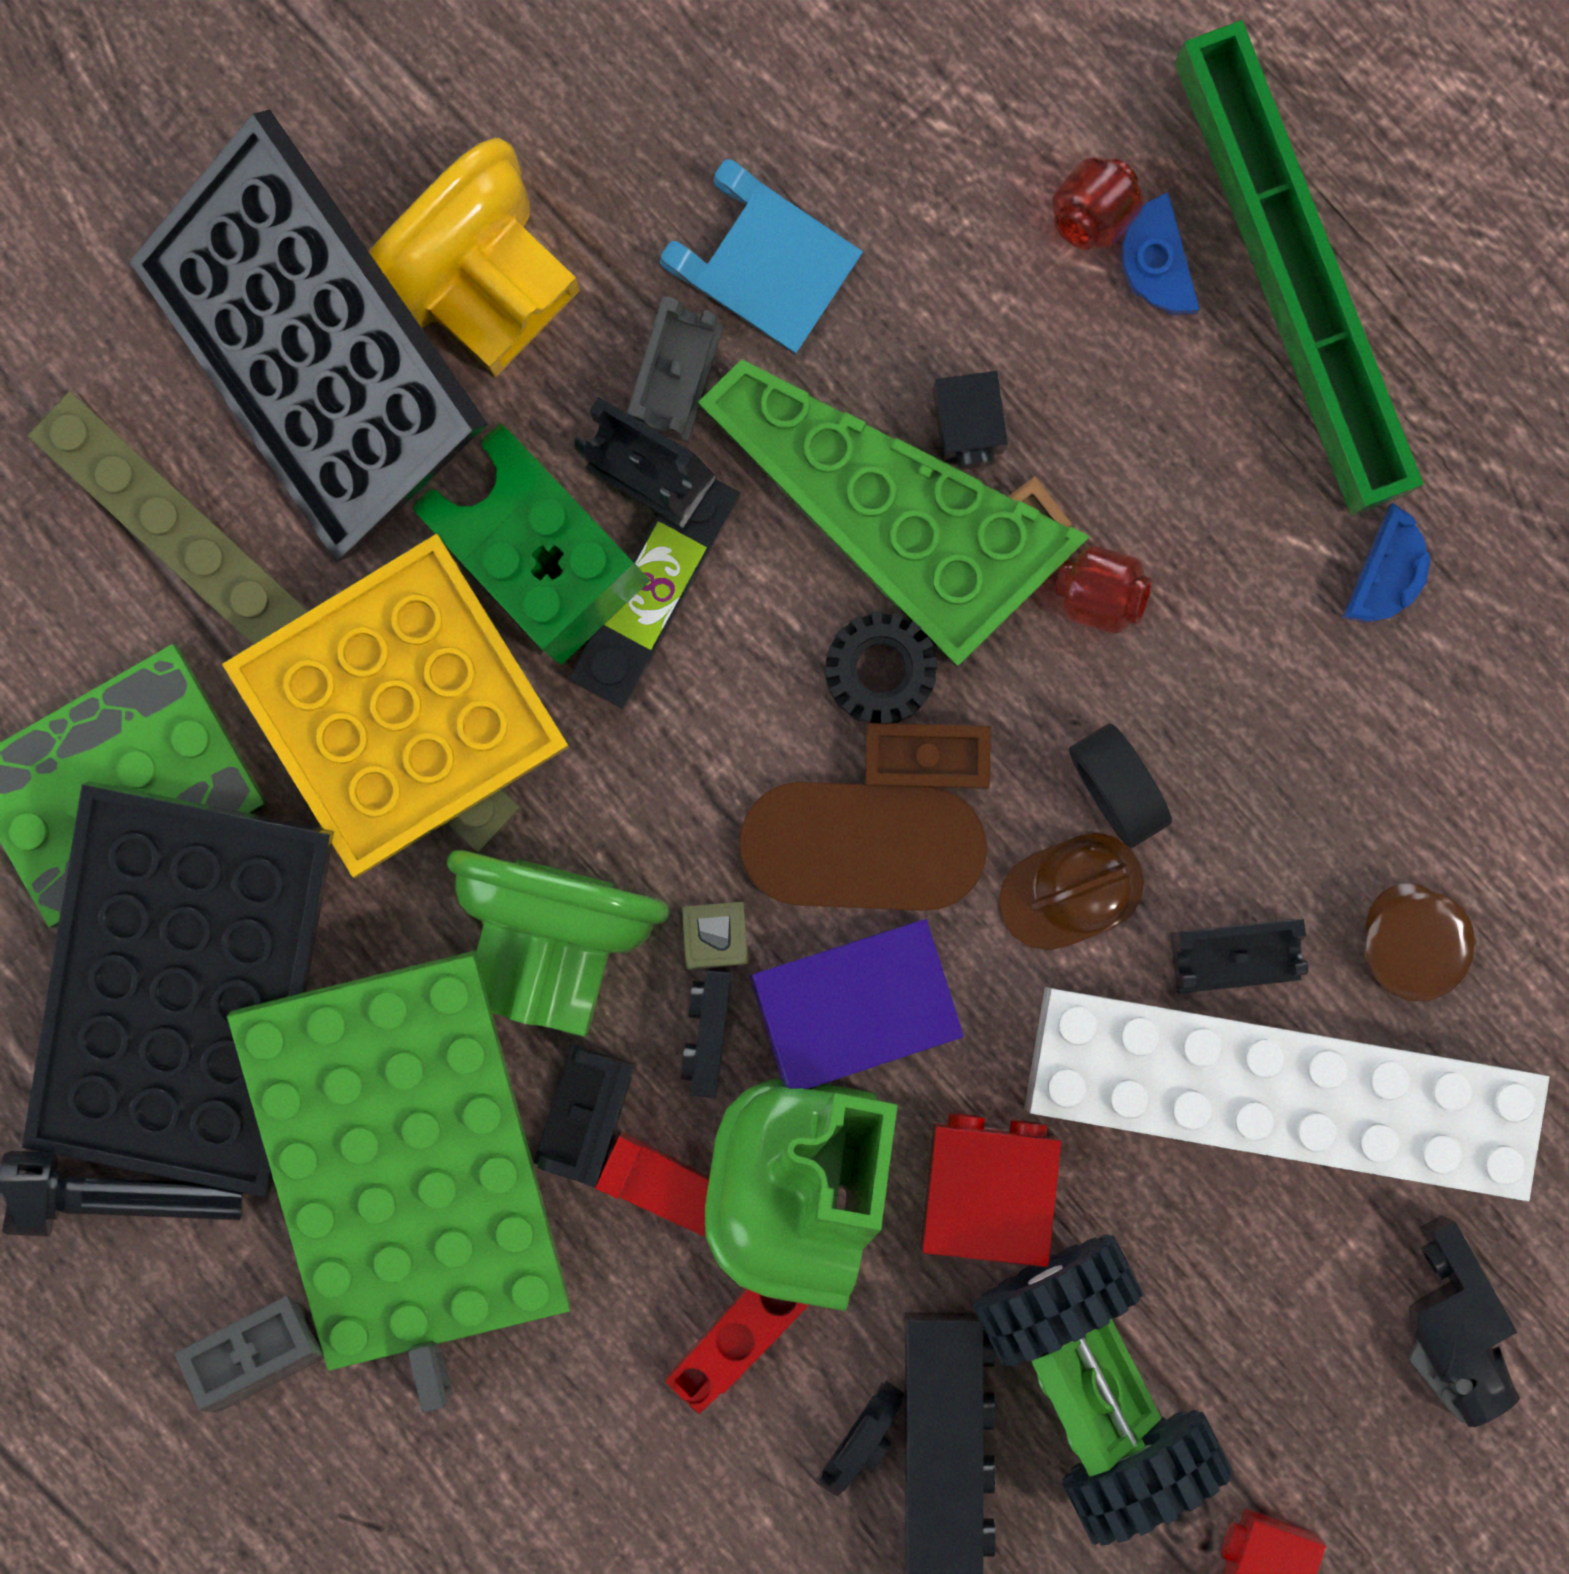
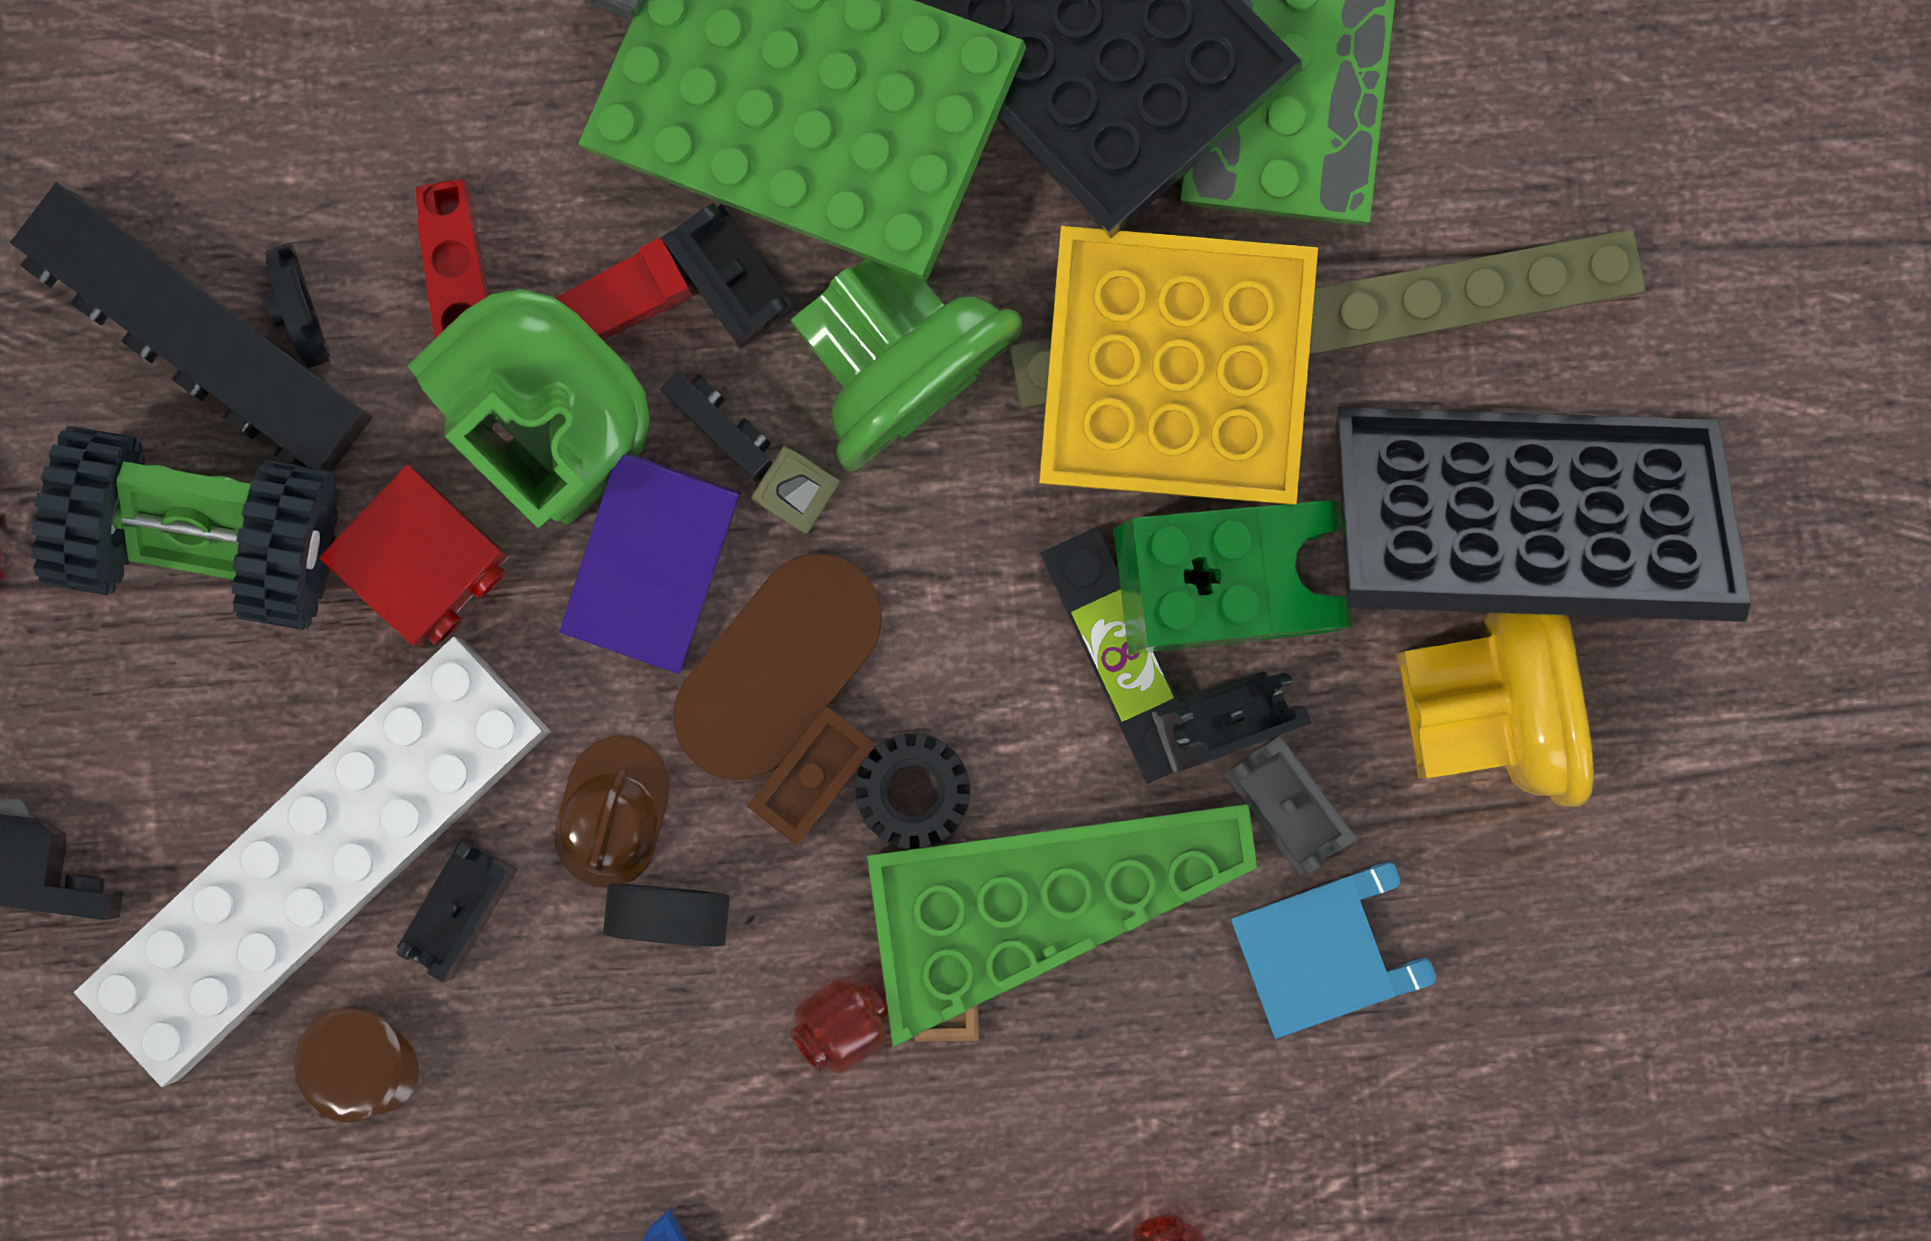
camera: 130 degrees right, 0 degrees up
(970, 419) = (1065, 1021): black brick -> none

